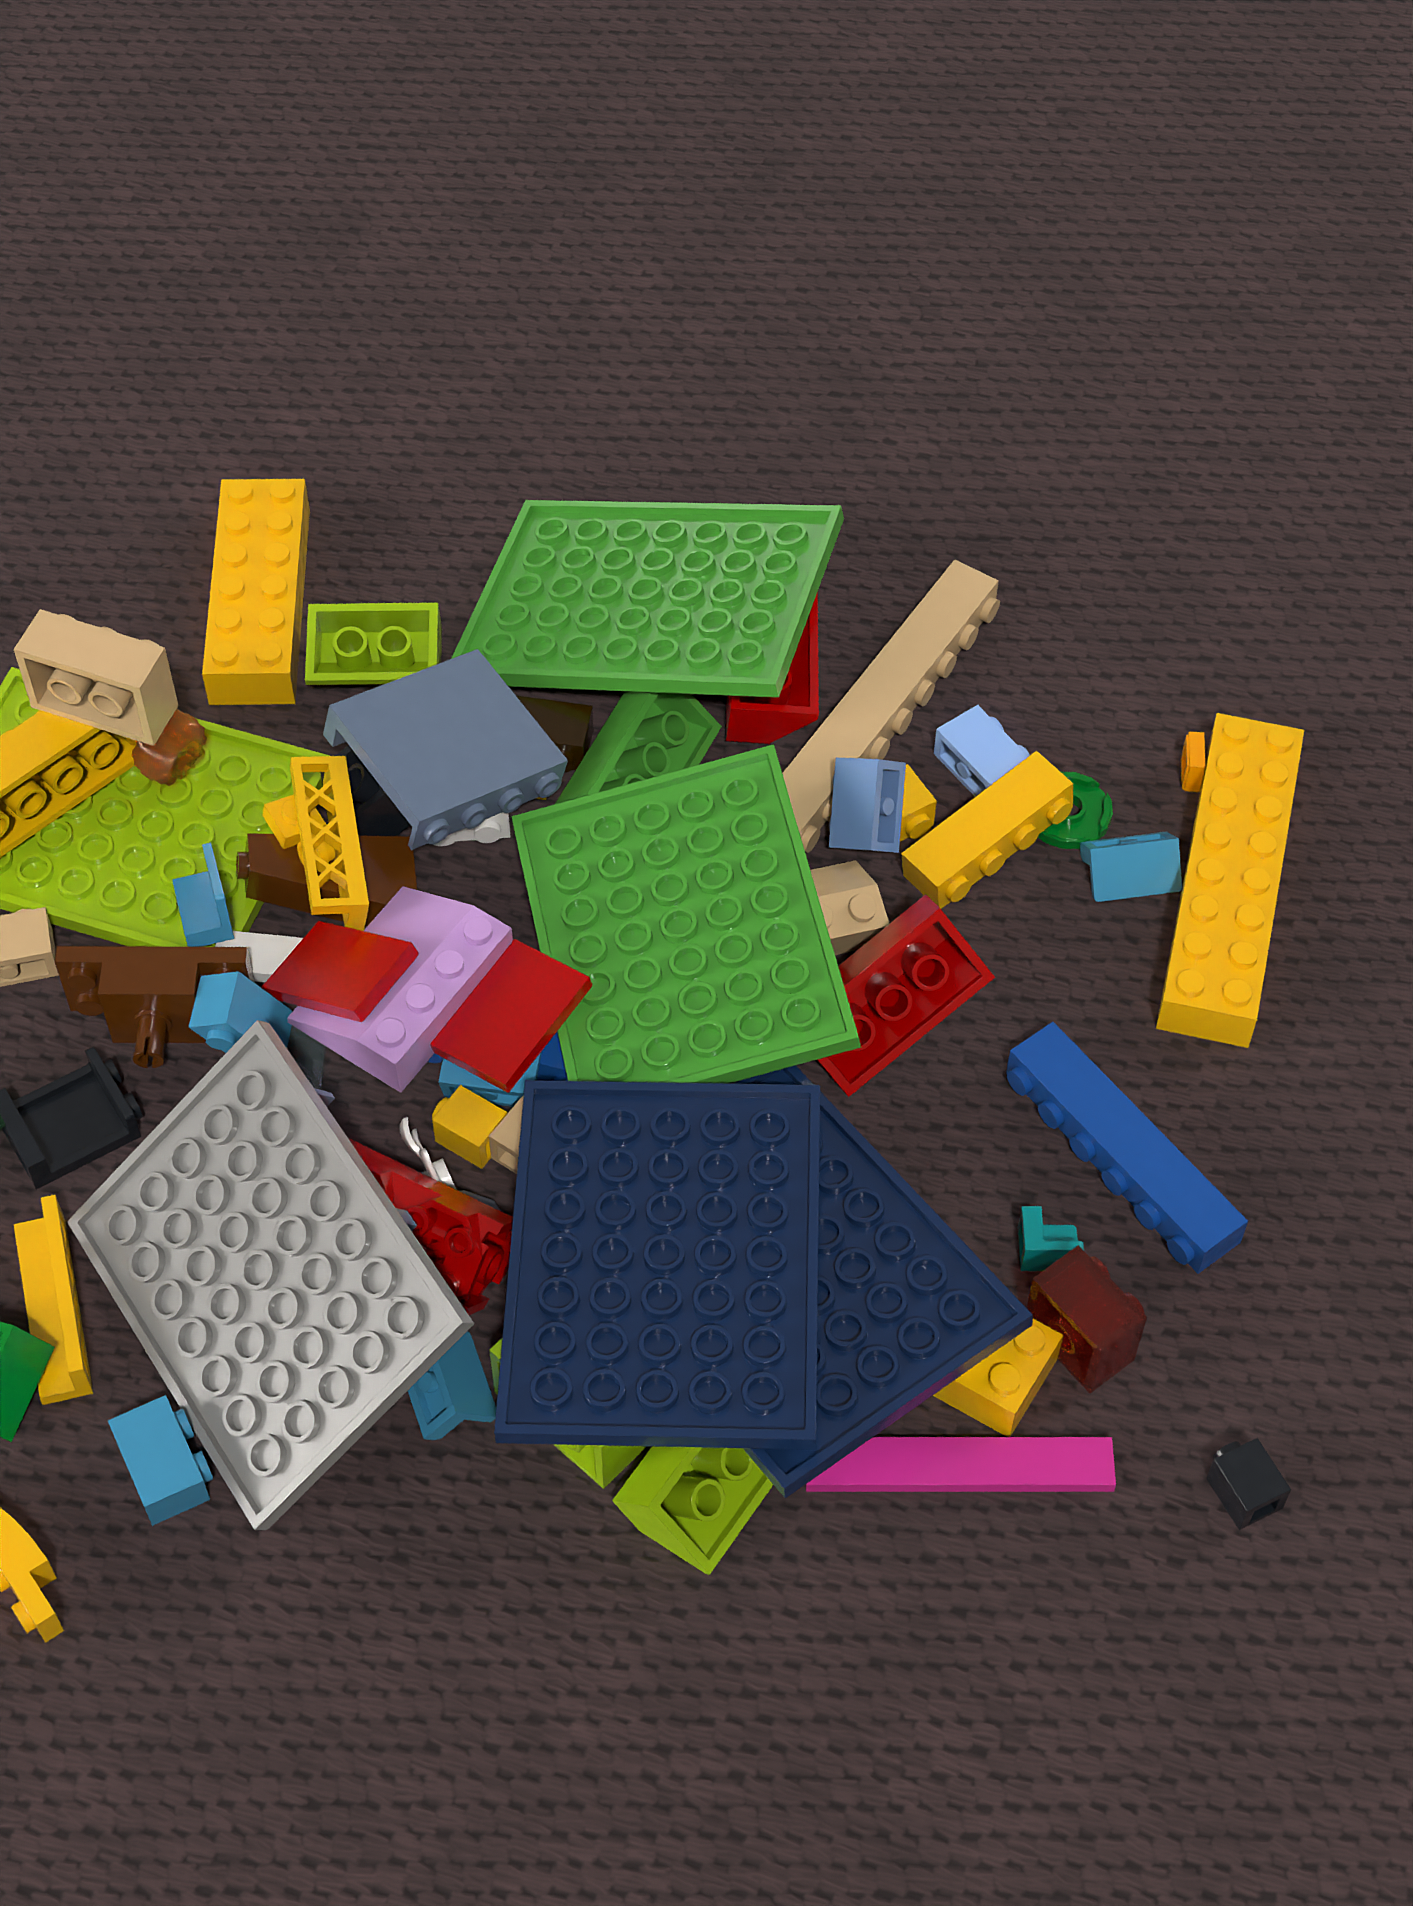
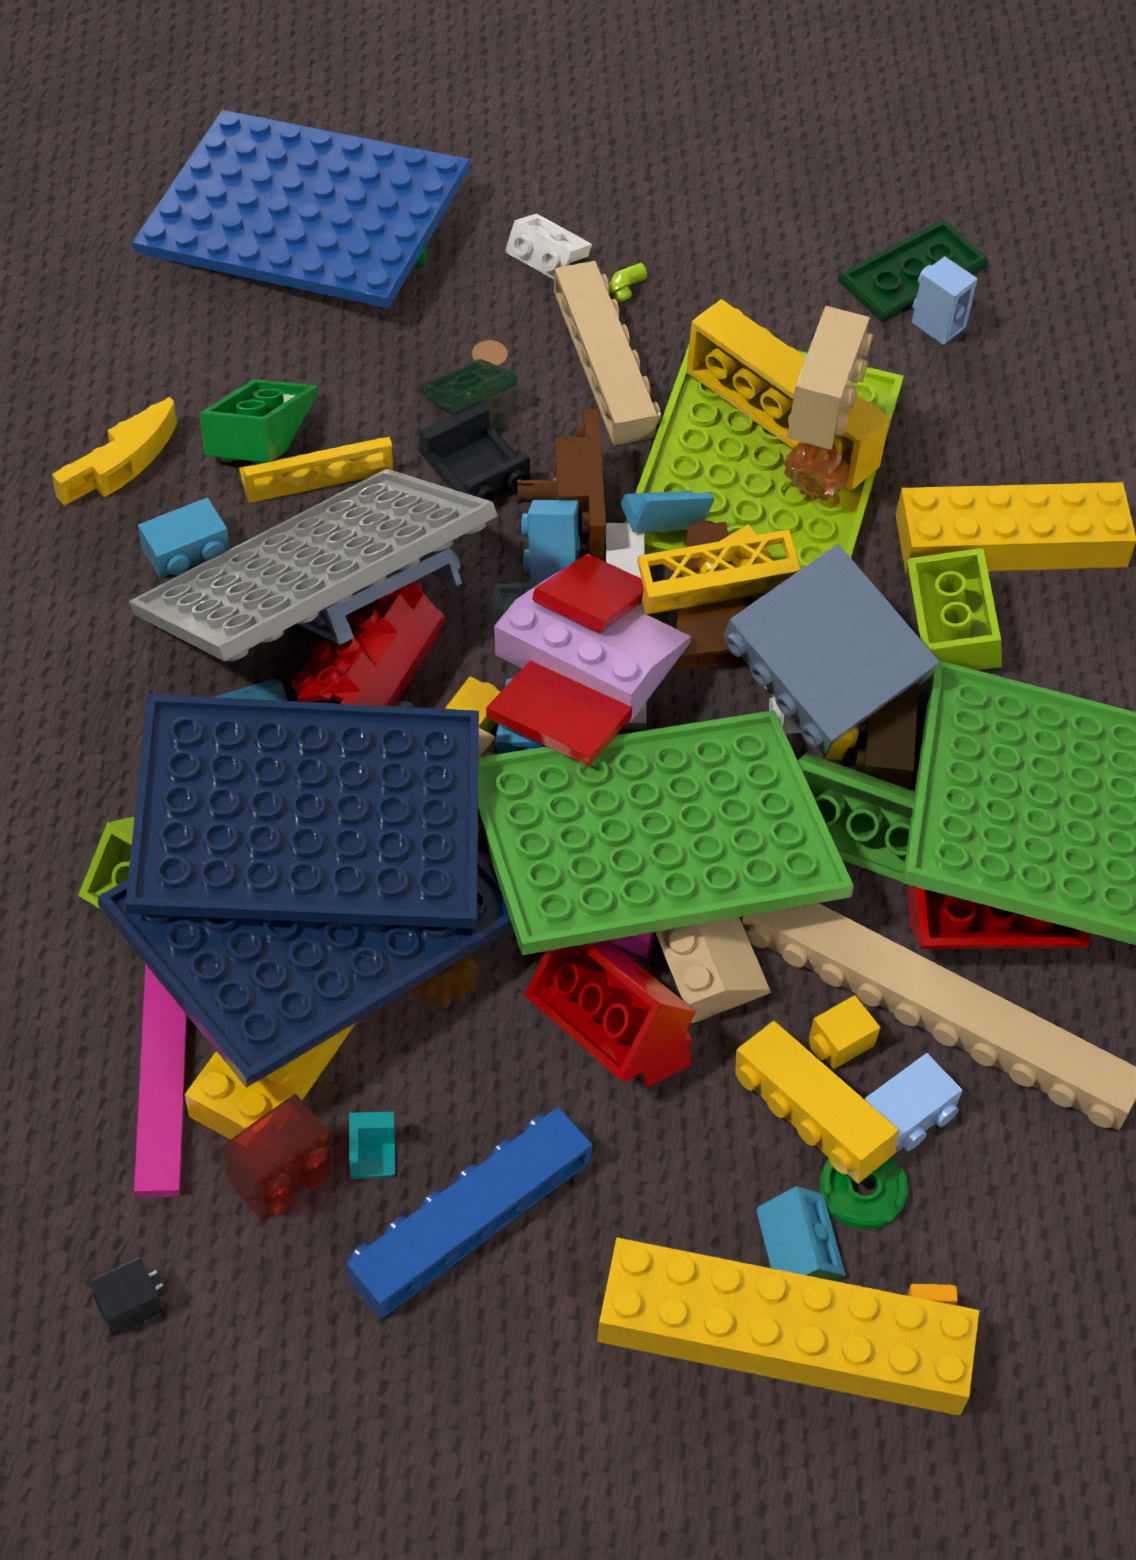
camera: 85 degrees right, 0 degrees up
(435, 1170) = (434, 678): white plate -> none
(867, 804) = (821, 987): medium blue brick -> none

